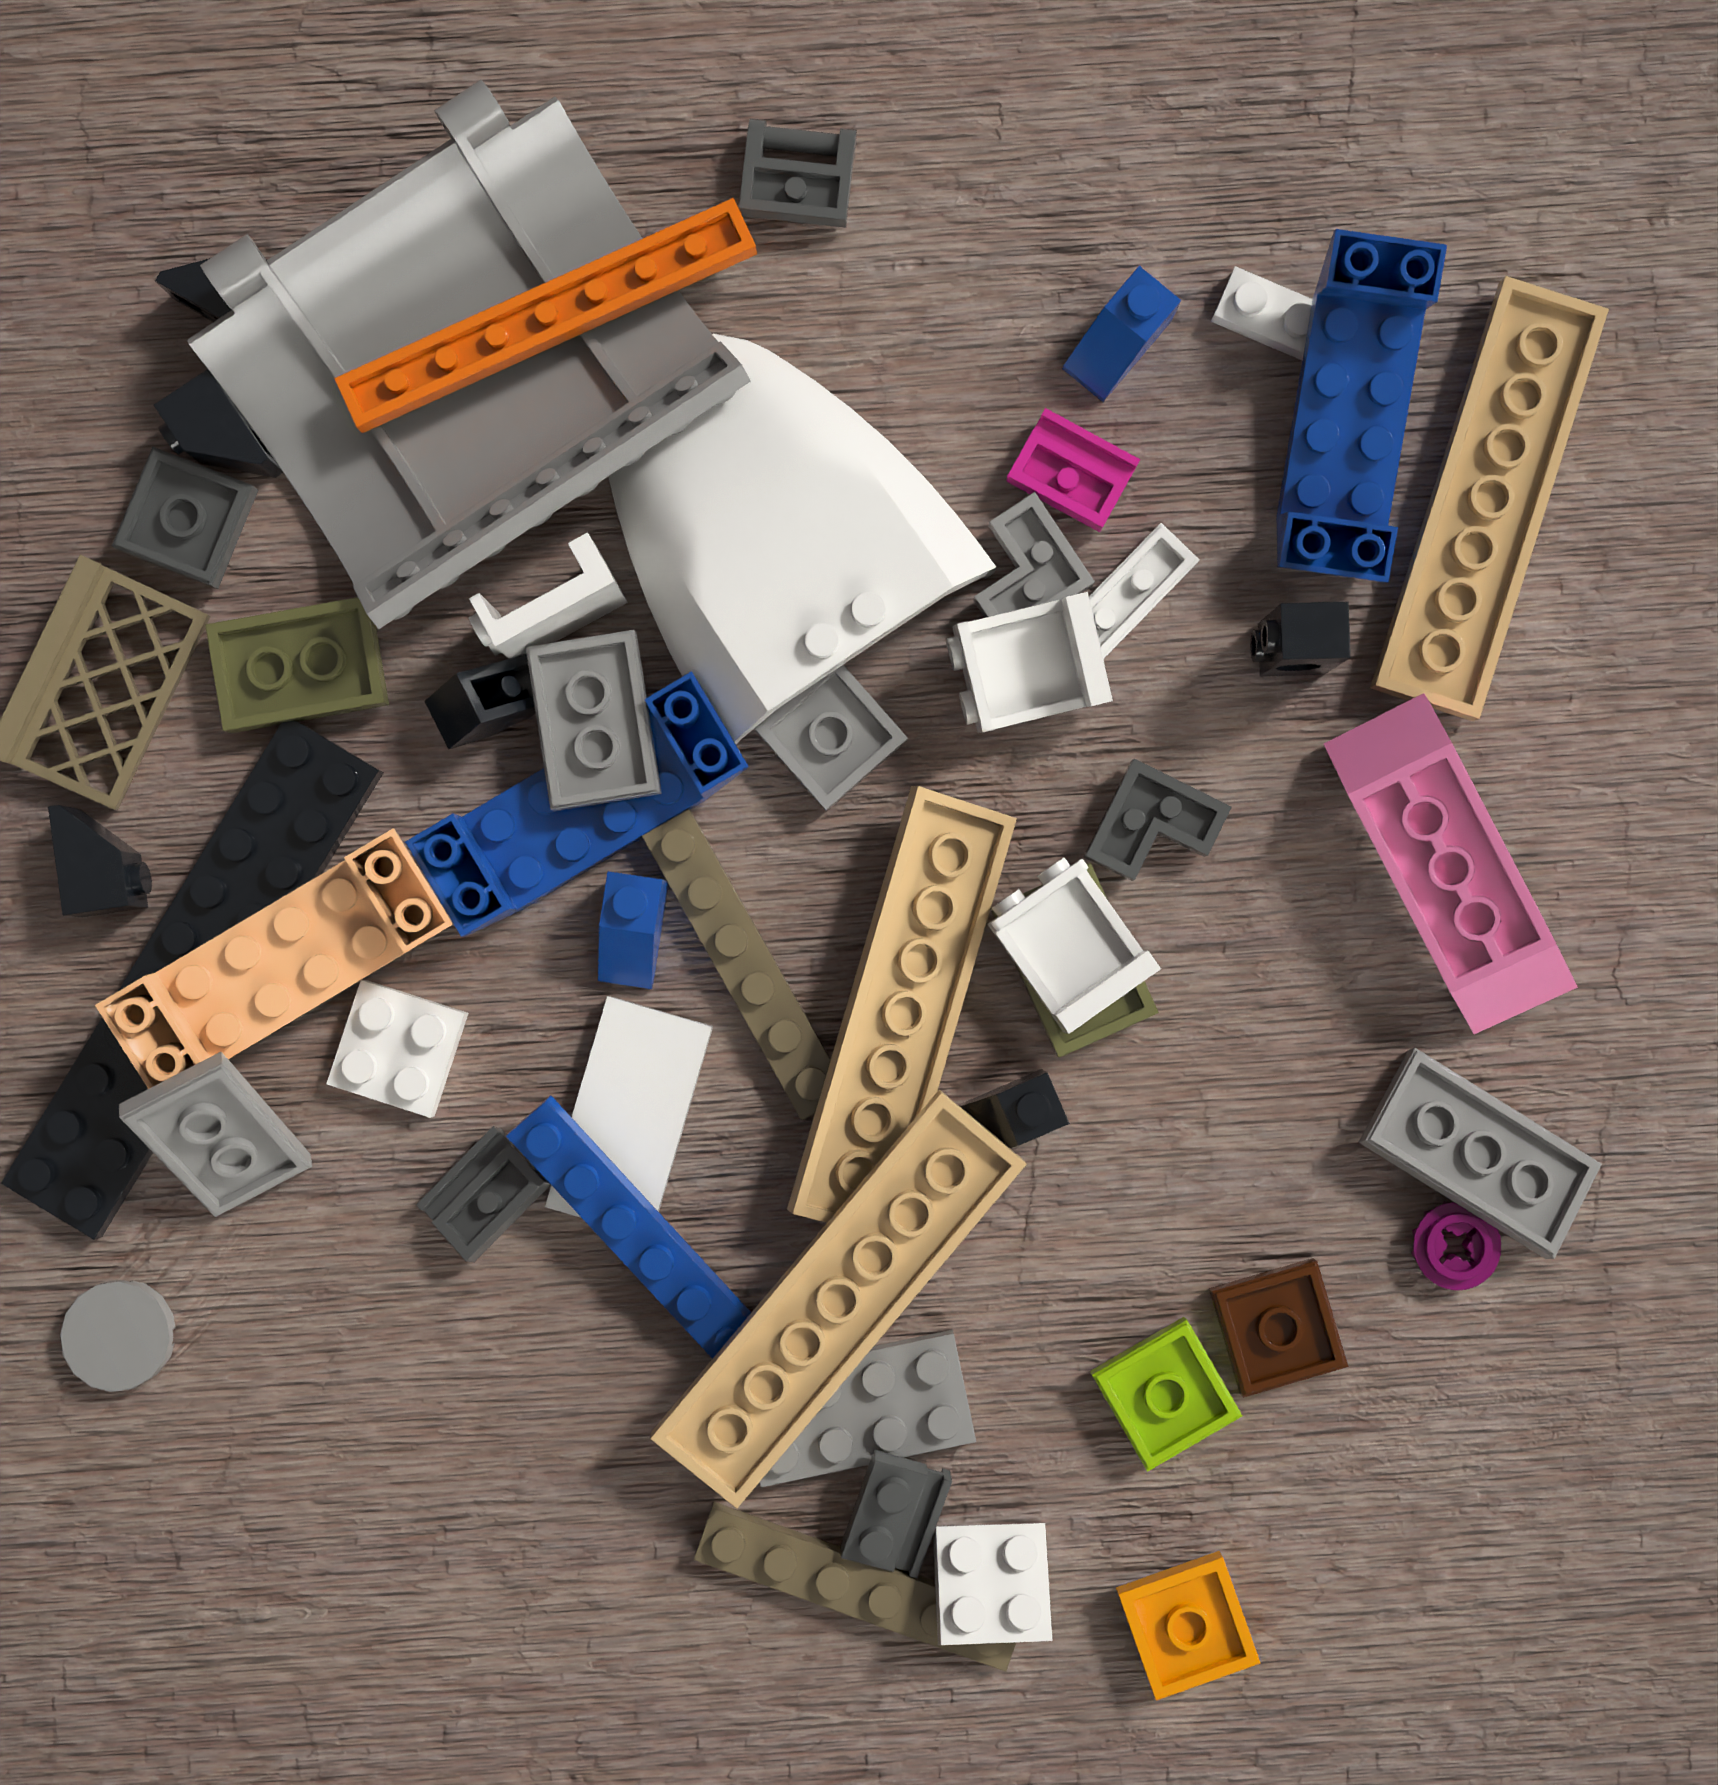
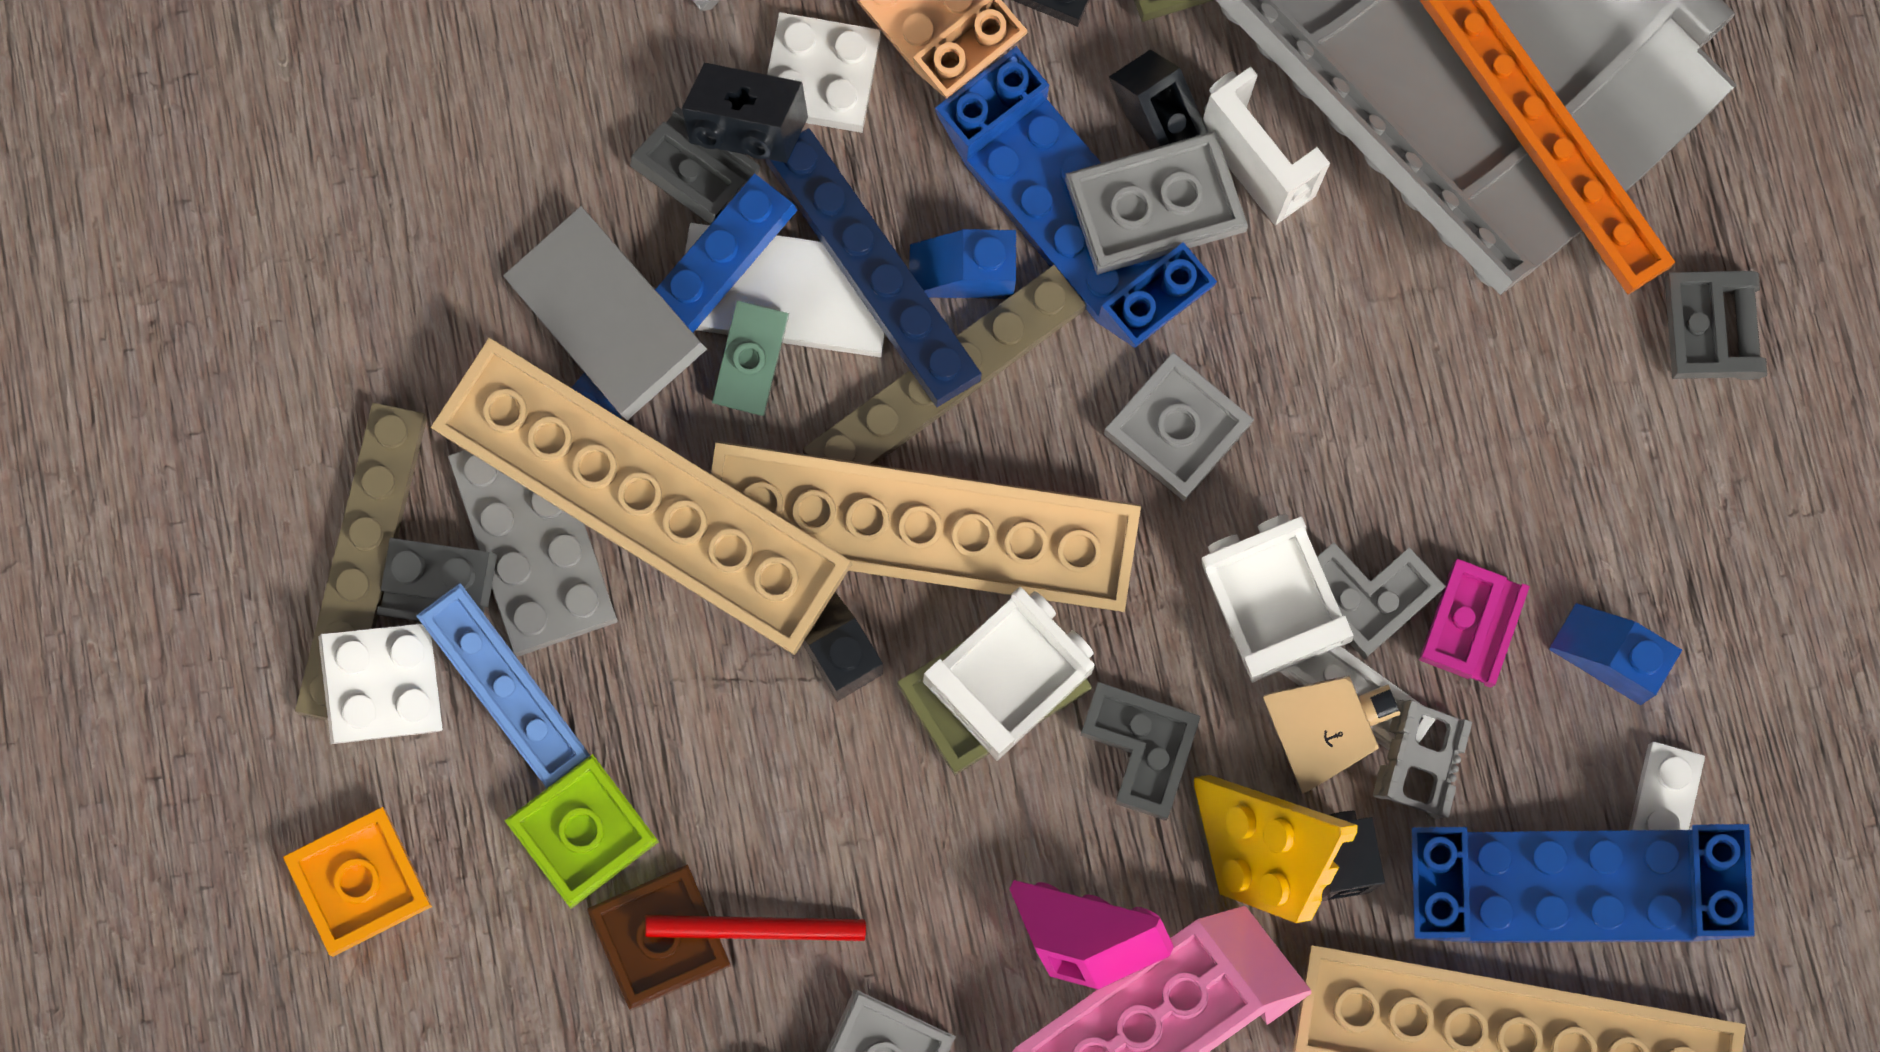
camera: 75 degrees right, 10 degrees down
(438, 1137) = (745, 112): none -> black brick
(620, 1024) = (875, 271): none -> dark blue plate
(635, 1311) = (604, 313): none -> light grey tile
(700, 1162) = (750, 358): none -> sand green plate
(783, 539) = (1361, 356): white windscreen -> none
(1011, 1460) = (503, 685): none -> medium blue tile
(1163, 633) = (1327, 726): none -> tan torso
(1198, 559) = (1407, 753): none -> light grey piece
(1284, 711) = (1269, 848): none -> yellow wing
(1286, 1233) = (755, 928): none -> red bar
(1350, 909) = (1088, 937): none -> dark pink slope

